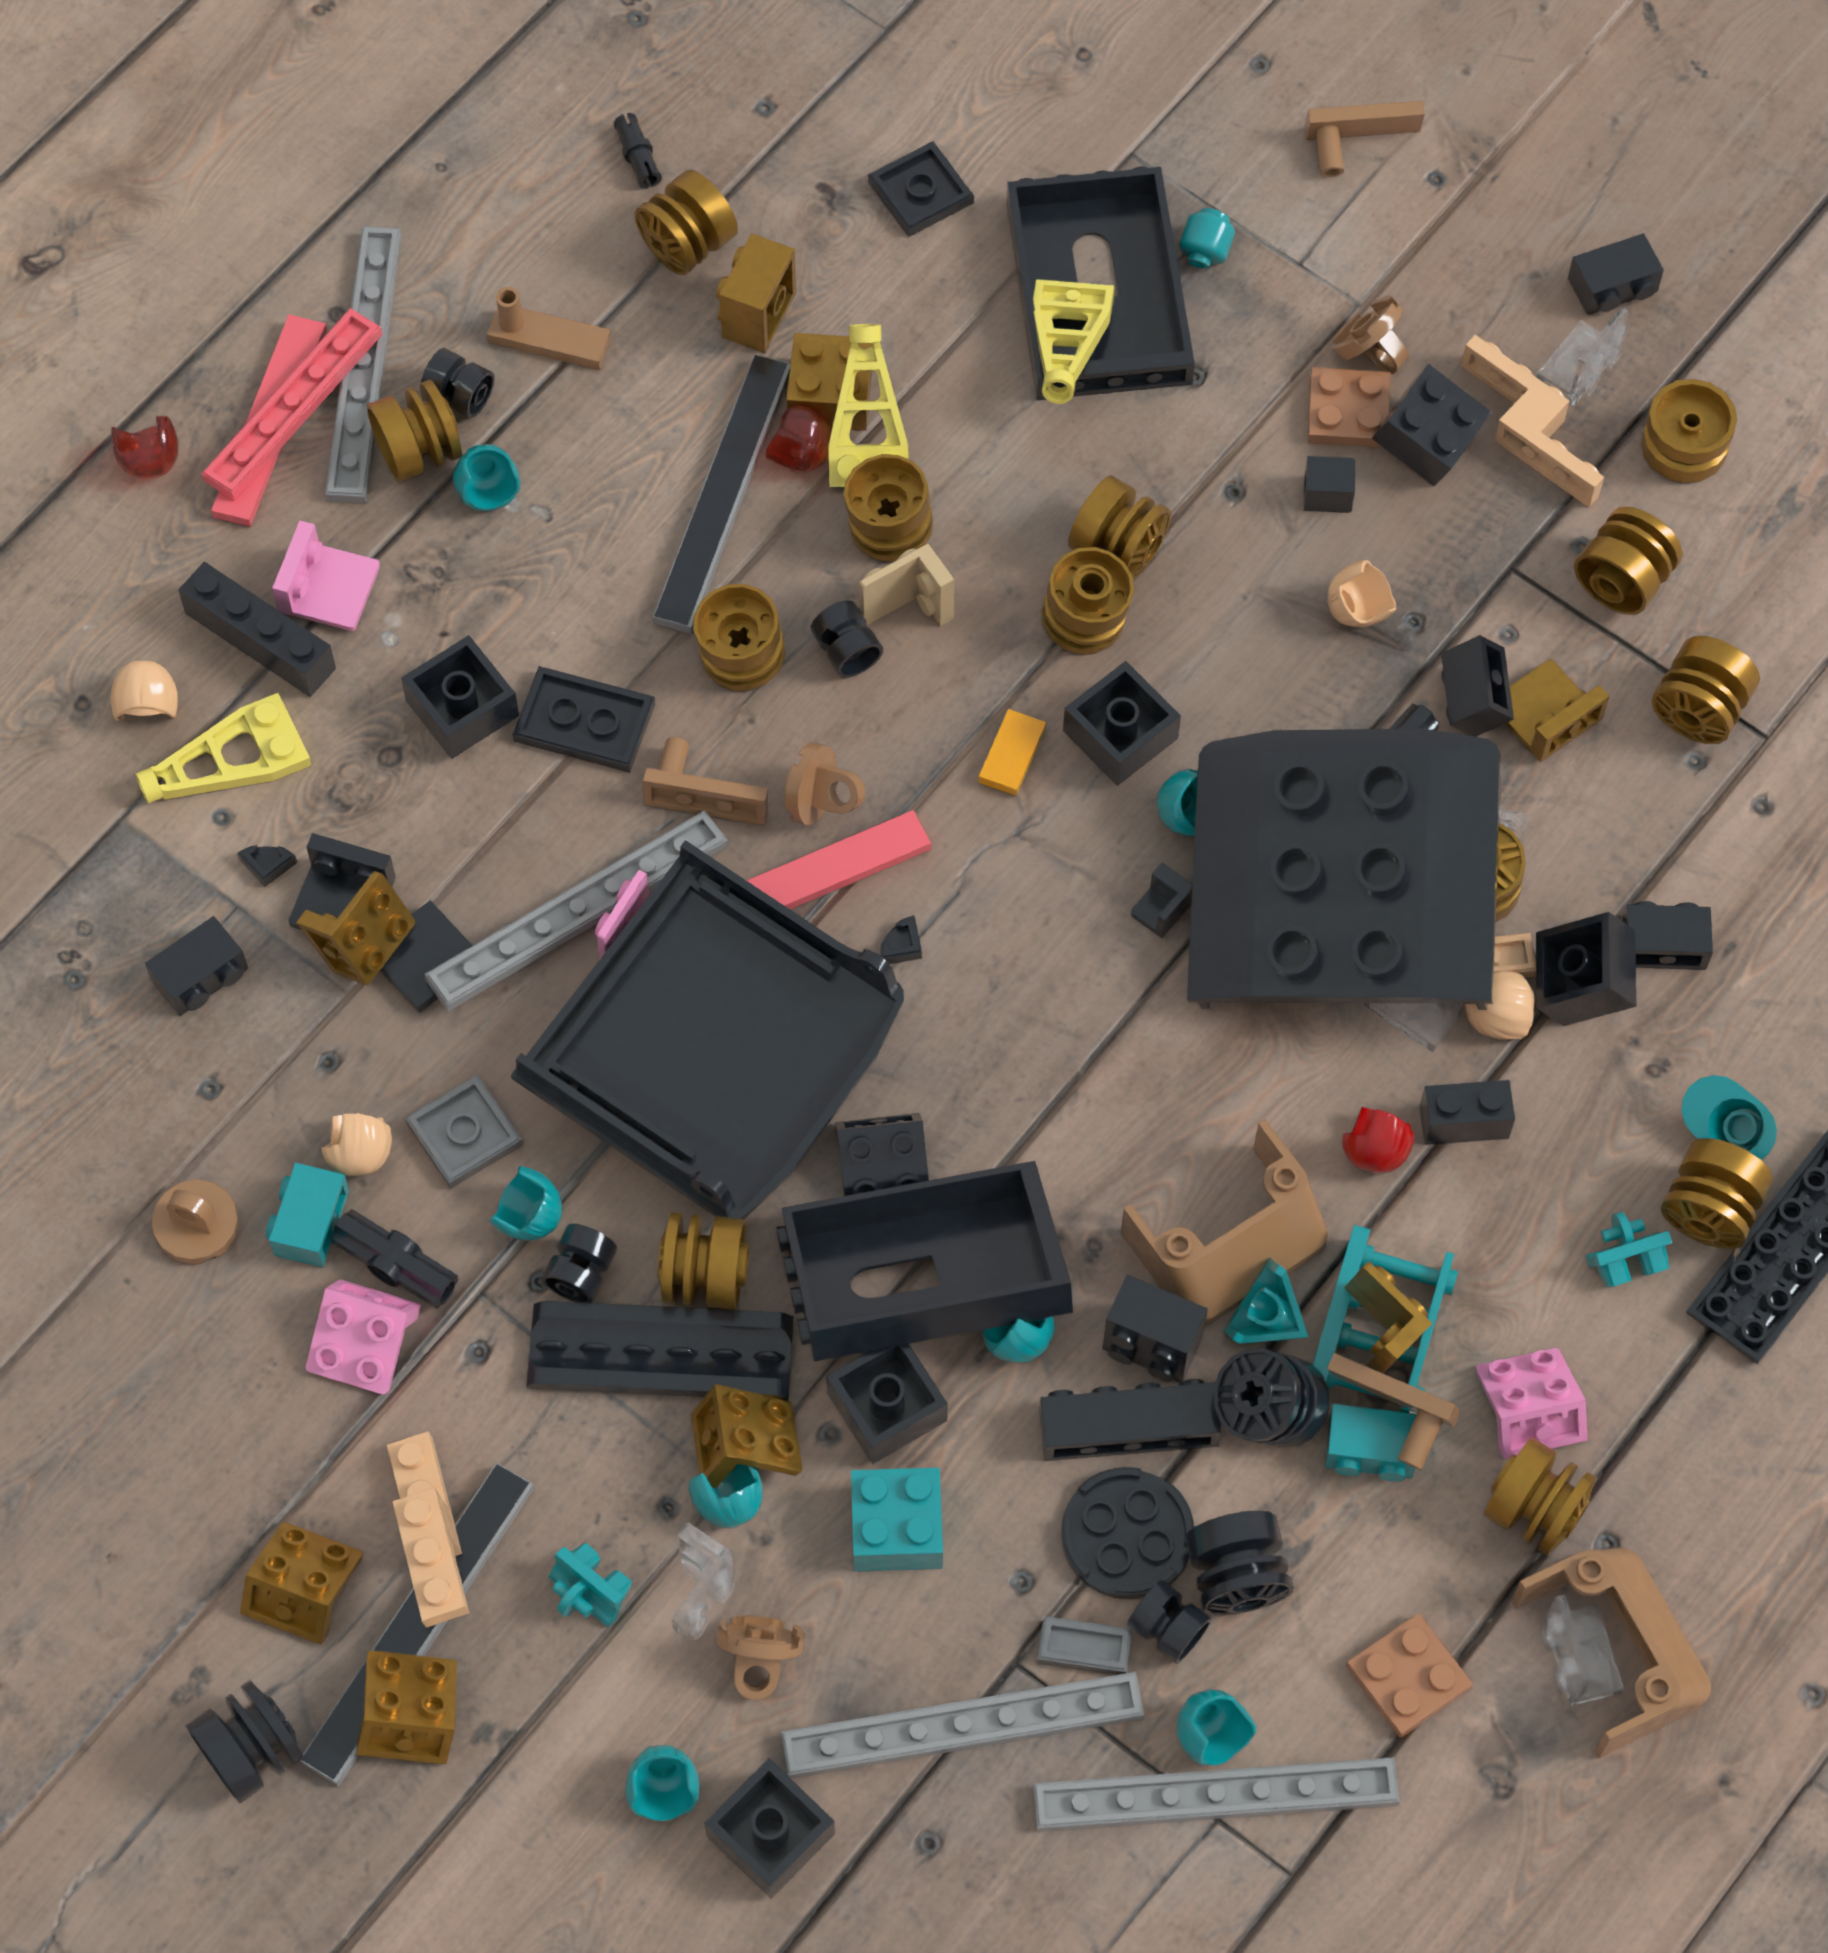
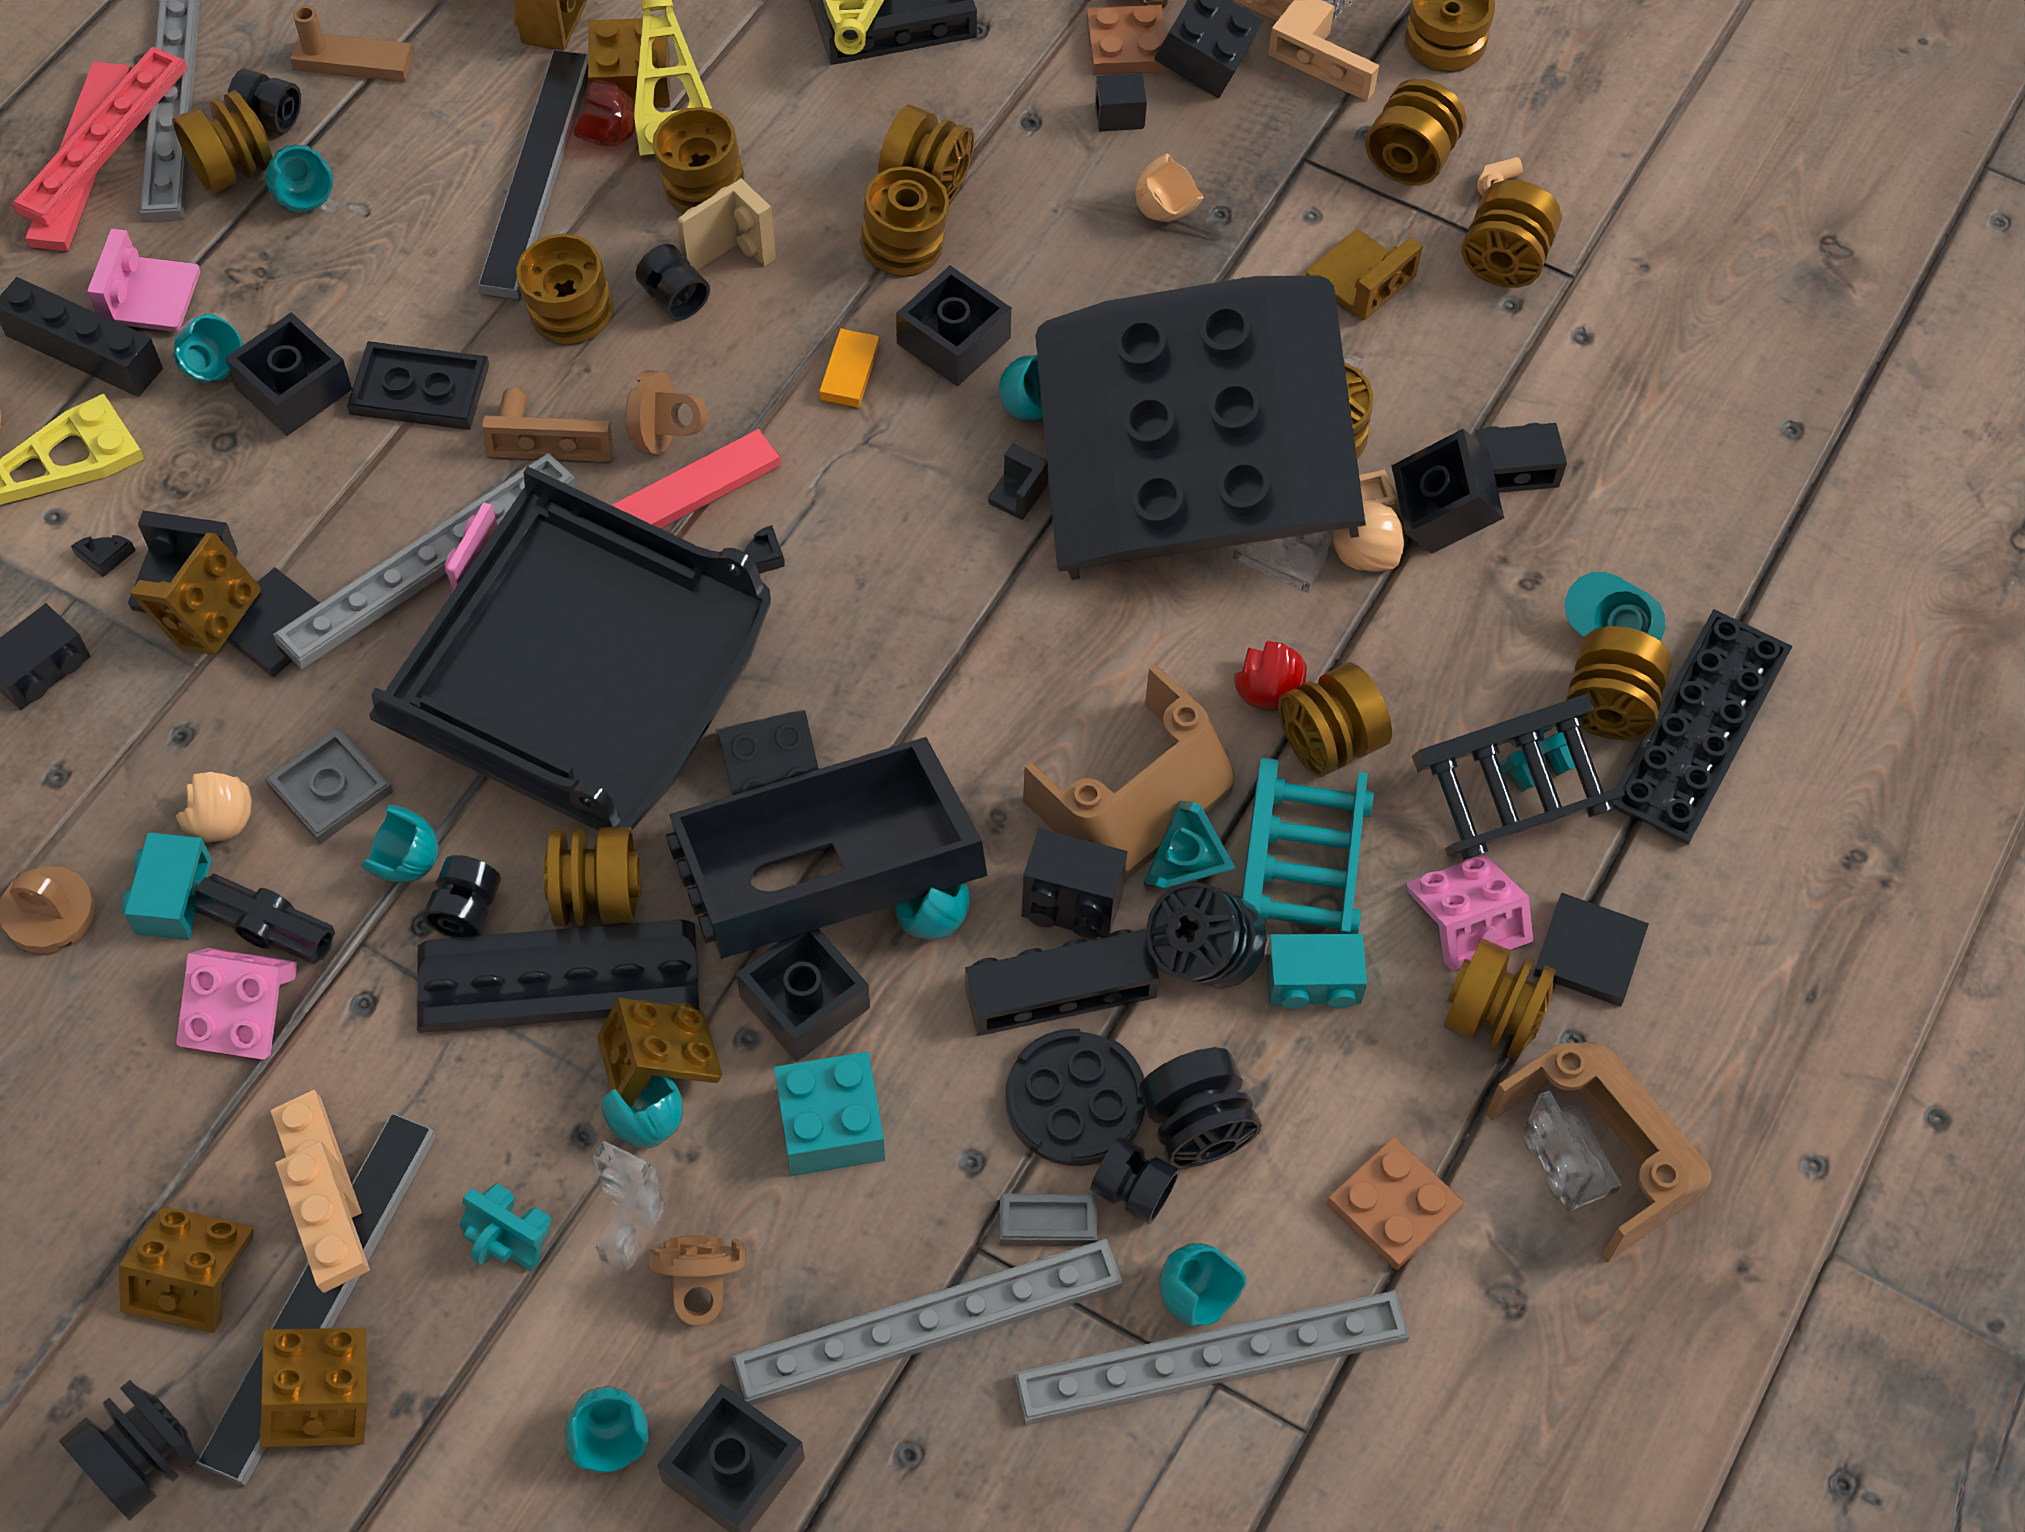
camera: 10 degrees left, 5 degrees down
(382, 660) = (203, 346): none -> teal hair
(1400, 1316) = (1316, 830): pearl gold bracket -> none
(1430, 1408) = (1372, 922): medium nougat piece -> none
(1432, 1195) = (1335, 719): none -> pearl gold wheel
(1467, 1112) = (1358, 635): black brick -> none
(1477, 686) = (1291, 246): black brick -> none
(1613, 1237) = (1525, 733): none -> black fence
(1641, 1455) = (1592, 949): none -> black tile
(1705, 611) = (1498, 172): none -> light nougat arm

